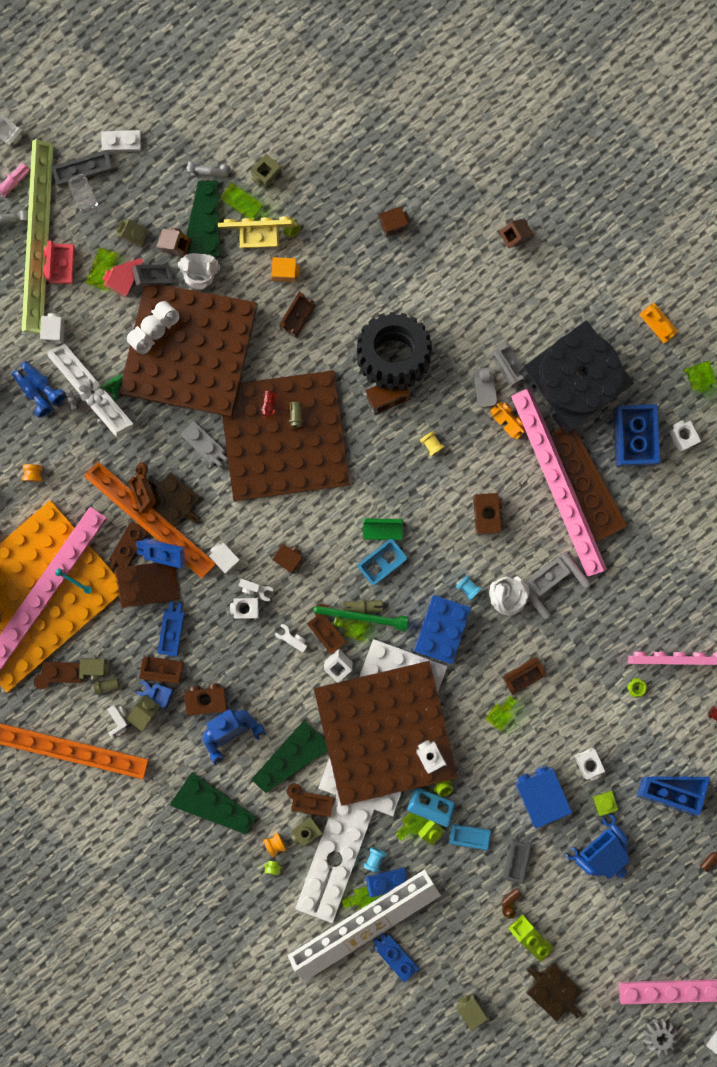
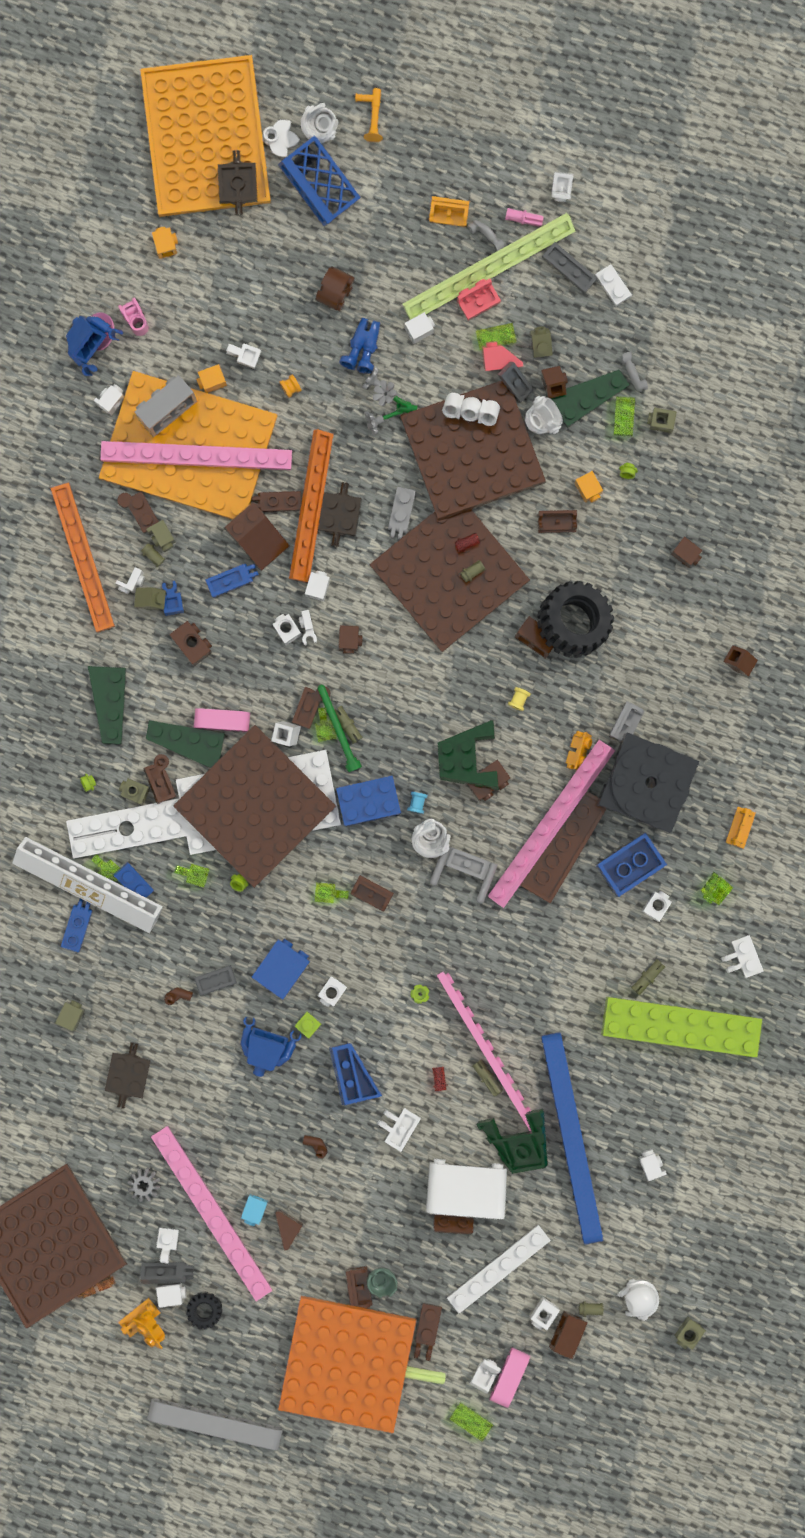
camera: 60 degrees right, 0 degrees up
(77, 374) = (394, 373): white plate -> none
(83, 194) = (547, 282): clear piece -> none
(87, 589) = (222, 490): teal hinge -> none
(141, 489) = (332, 483): reddish brown hinge -> none
(161, 552) = (289, 531): blue hinge -> none
(161, 669) = (194, 591): reddish brown hinge -> none
(227, 727) = (180, 674): blue torso -> none
(258, 233) = (605, 448): light yellow bracket -> none
(275, 845) = (108, 772): light orange wheel -> none
(290, 715) = (222, 719): none -> bright pink beam
(297, 641) = (284, 687): white plate -> none
(375, 860) = (145, 862): medium azure bush -> none
(377, 556) = (396, 712): dark azure piece -> none
(382, 529) = (422, 702): green panel -> none
(430, 811) = (212, 882): dark azure piece -> none
(431, 832) = (196, 894): lime plate -> none
(433, 764) = (257, 860): white brick -> none
(452, 527) = (459, 758): none -> dark green wing
(470, 836) = (211, 929): dark azure tile -> none
(485, 387) = (594, 714): light grey piece -> none
(530, 938) = (159, 1030): lime bracket -> none

